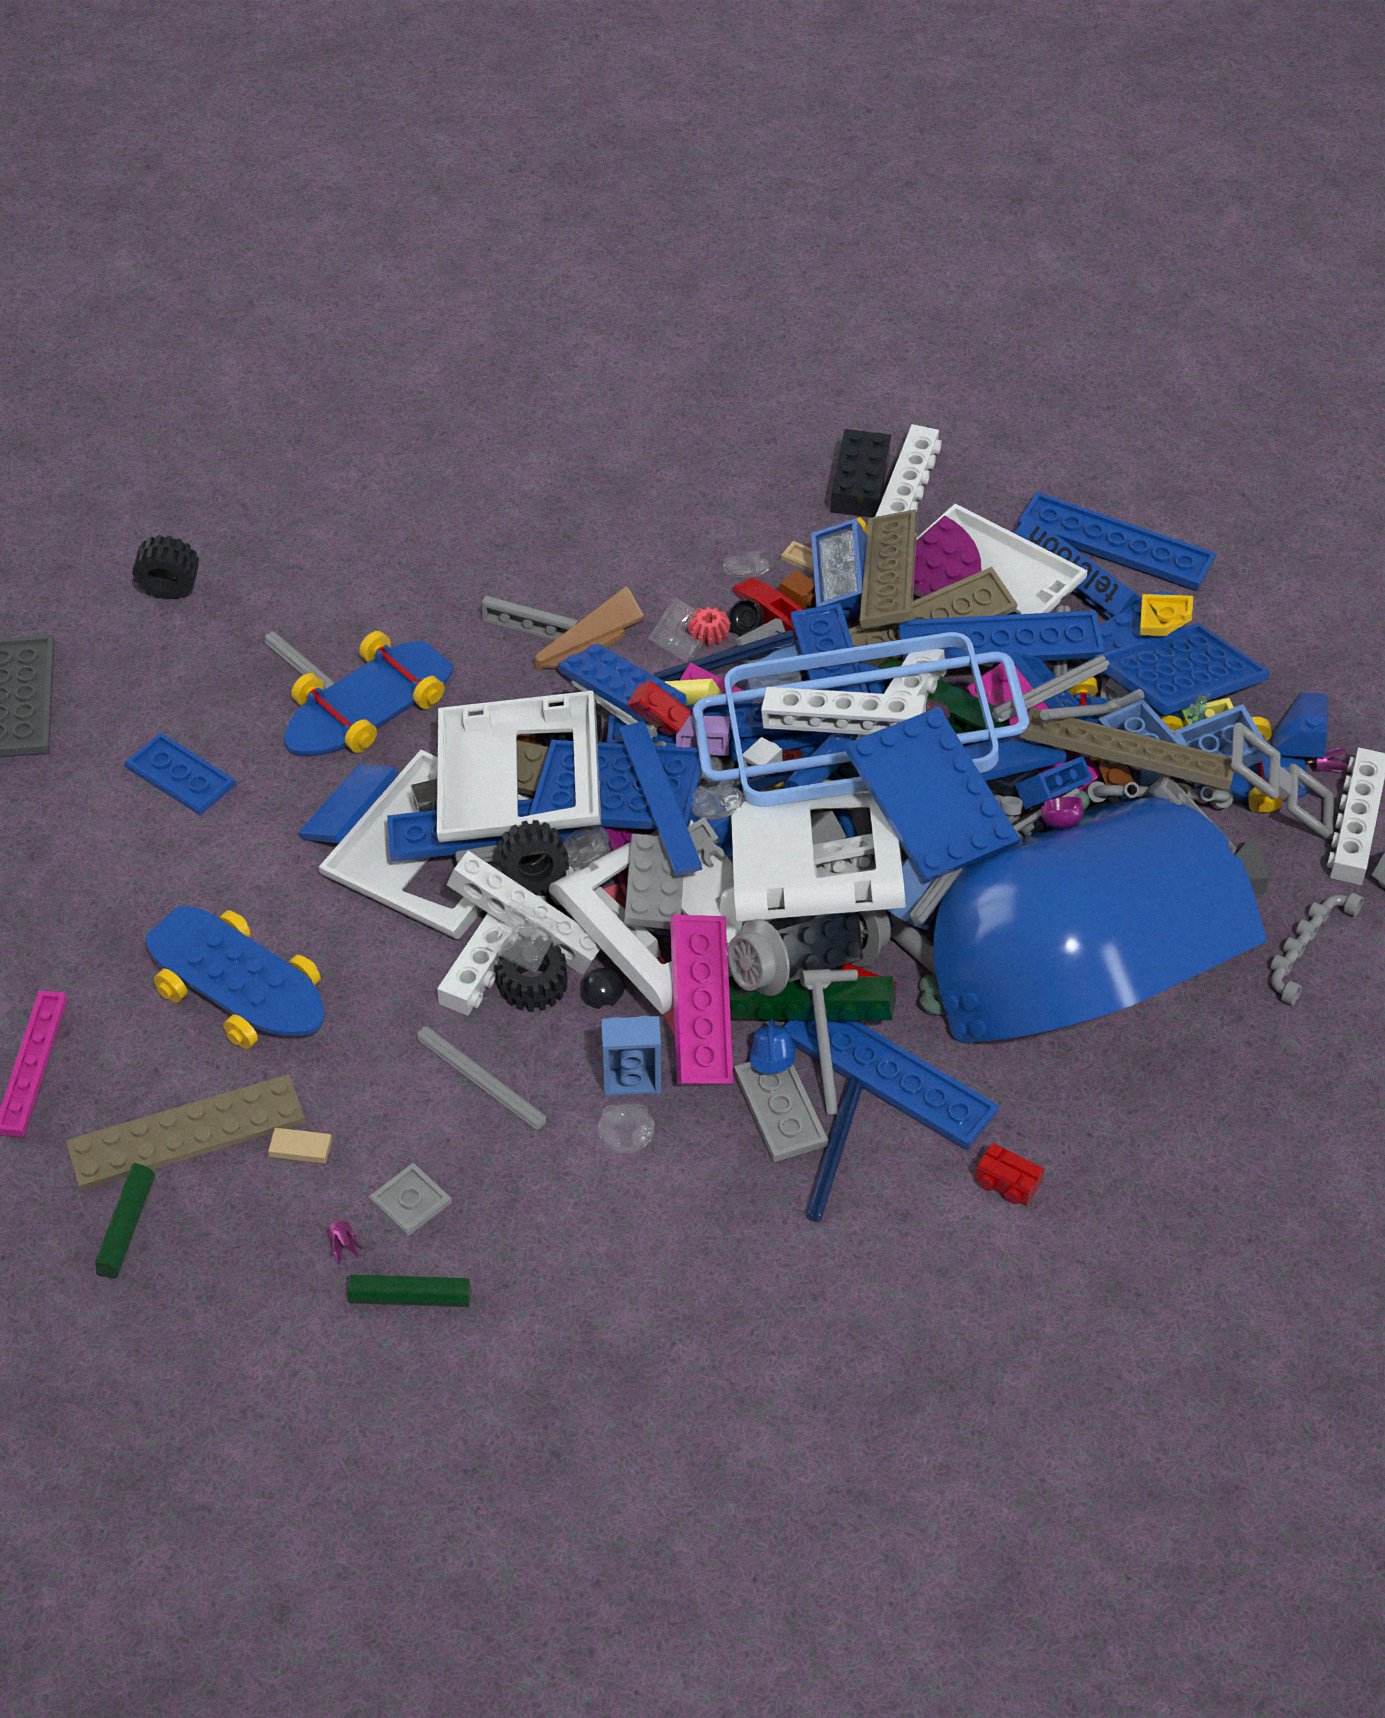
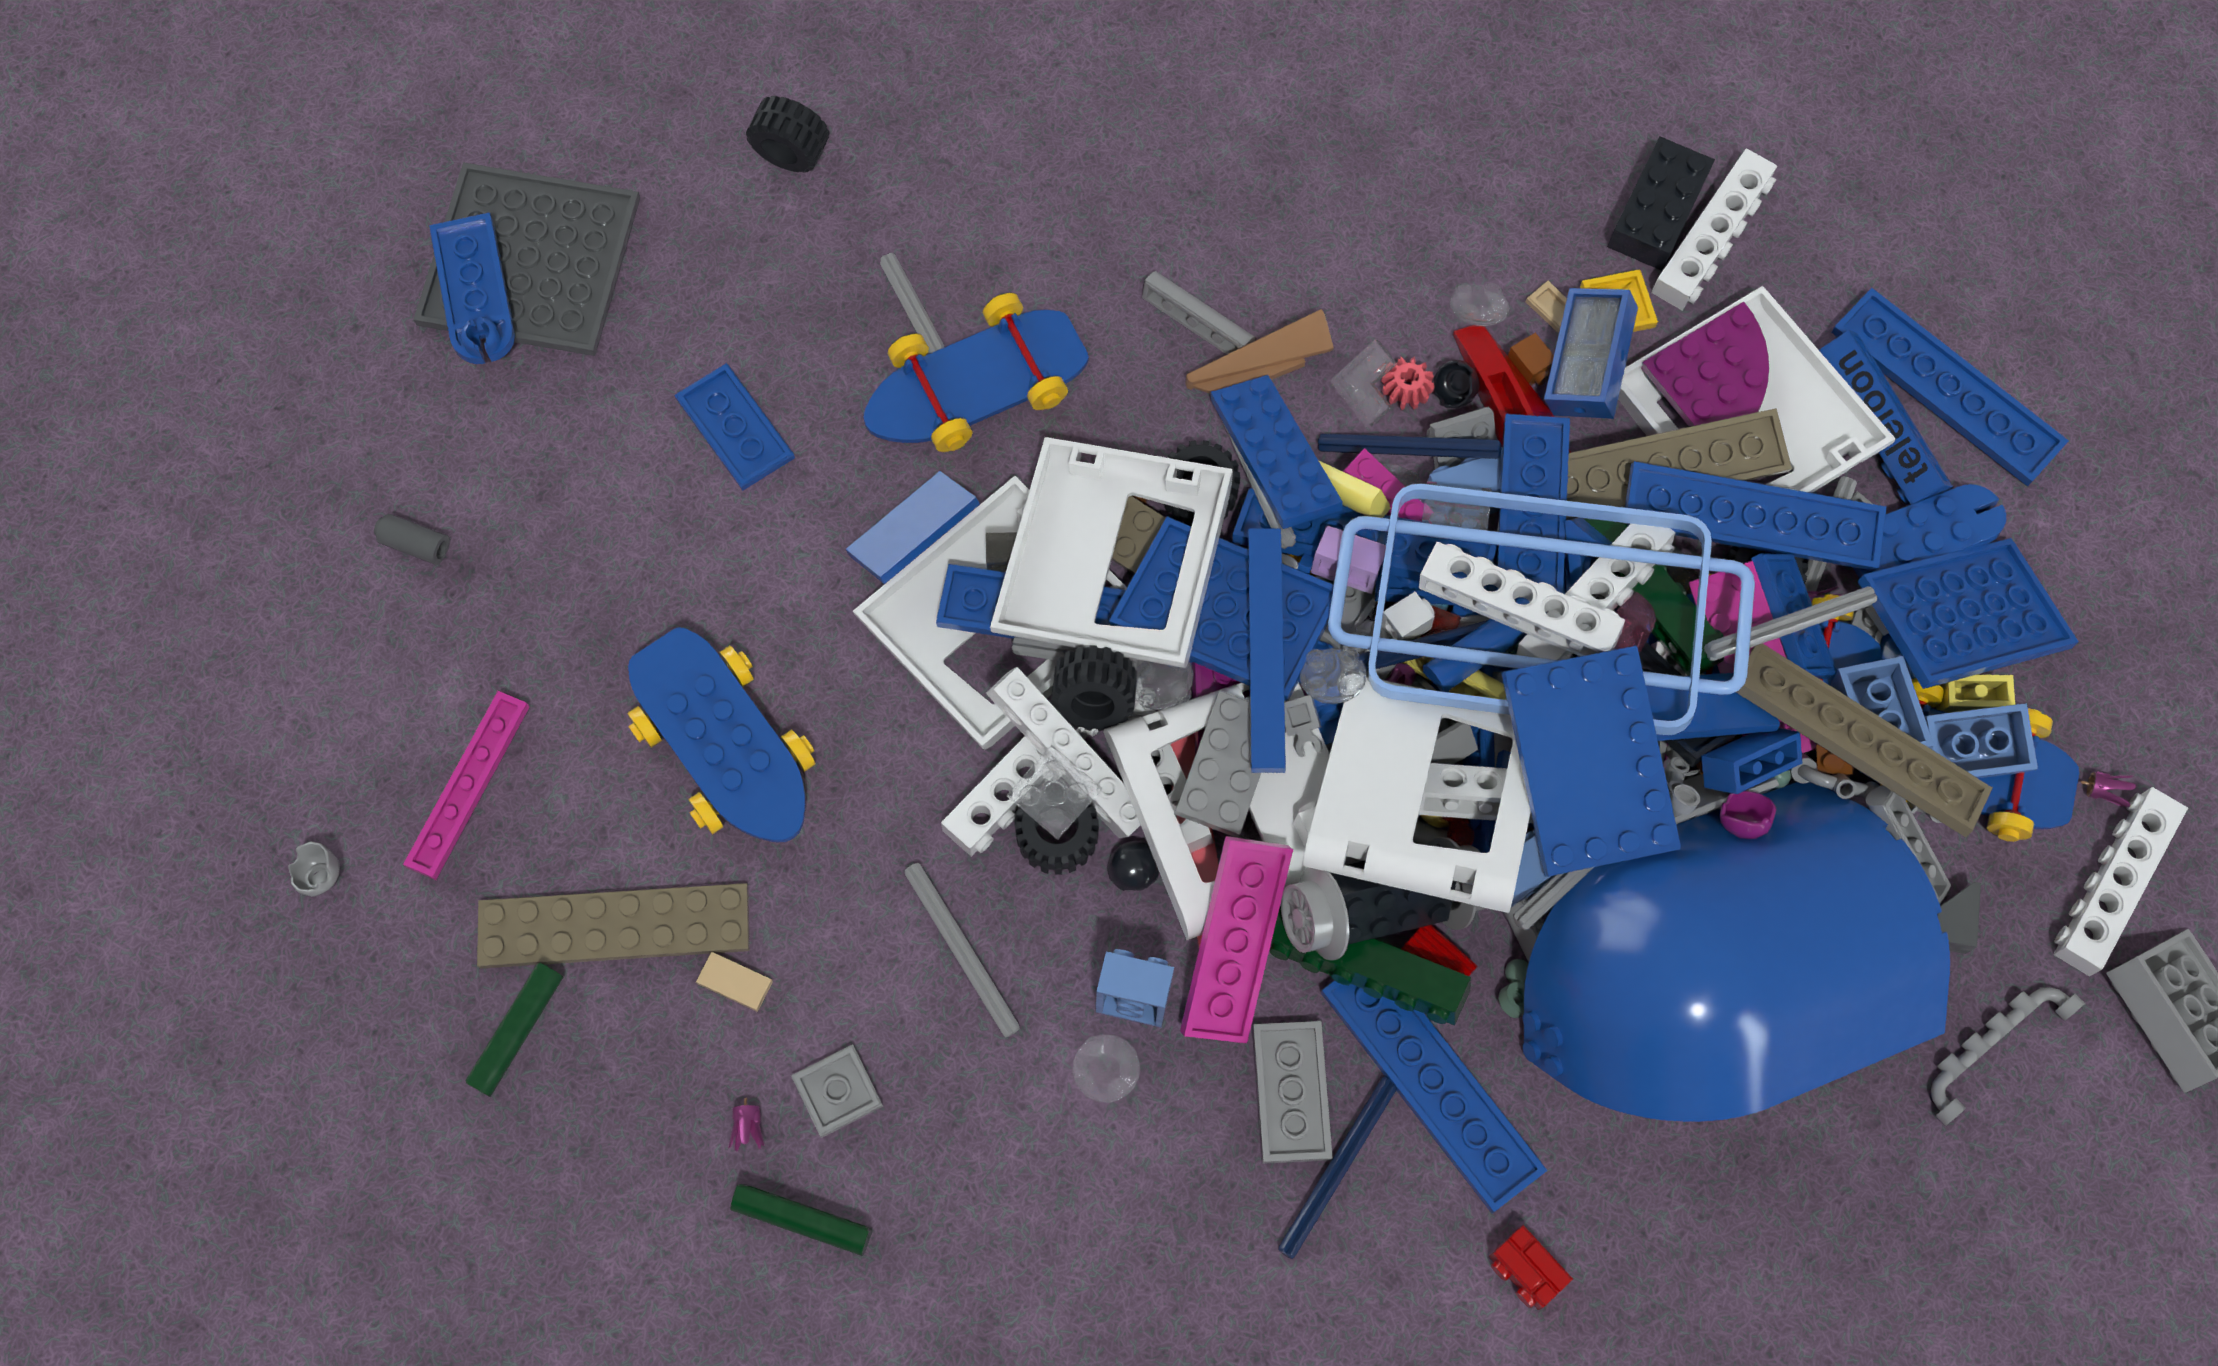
camera: 15 degrees right, 20 degrees up
(658, 708) = (1301, 520): red brick -> none
(772, 1049) = (1303, 1018): blue piece -> none
(817, 981) = (1376, 960): light grey bar -> none
(889, 569) = (1648, 375): dark tan plate -> none
(1100, 710) = (1847, 650): light grey bar -> none
(1164, 613) = (1972, 529): yellow plate -> none
(1197, 711) = (1965, 692): clear light blue plate -> none
(1282, 782) = (2039, 821): light grey bar -> none
(1304, 727) = (2095, 734): blue wedge -> none

